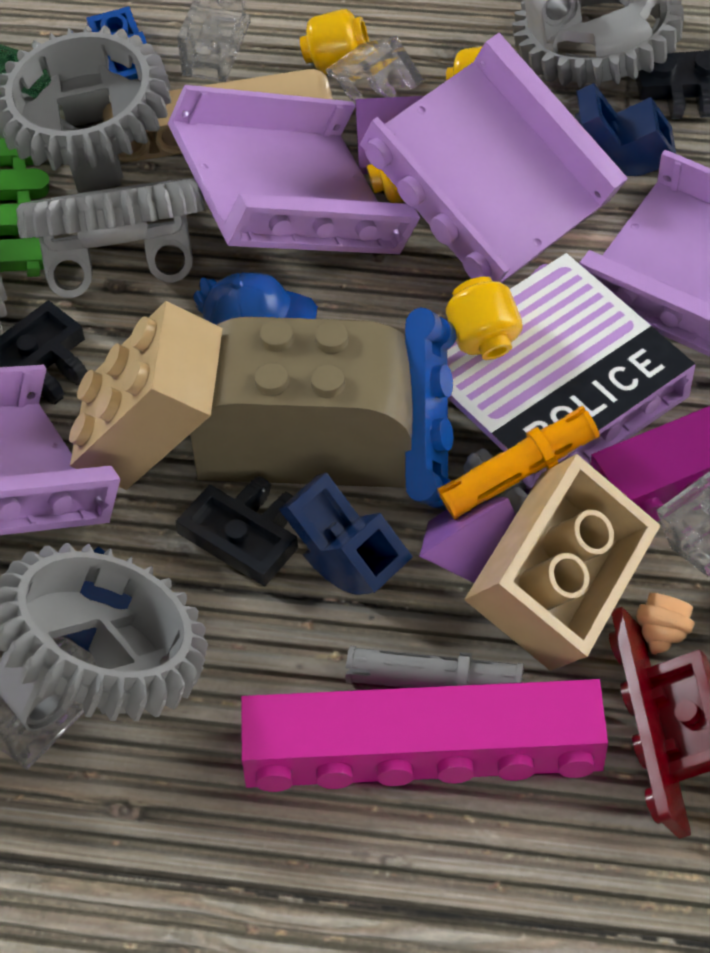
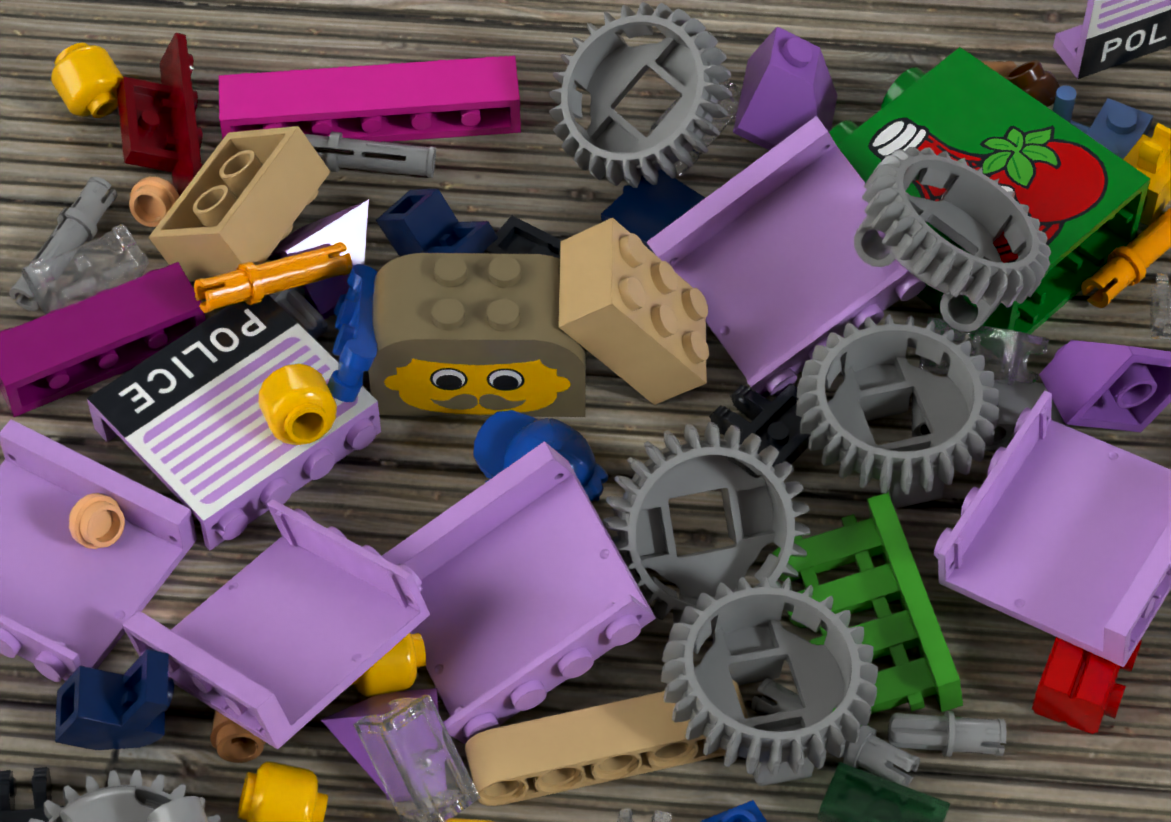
camera: 175 degrees right, 0 degrees up
(674, 272) = (96, 521): none -> light nougat plate

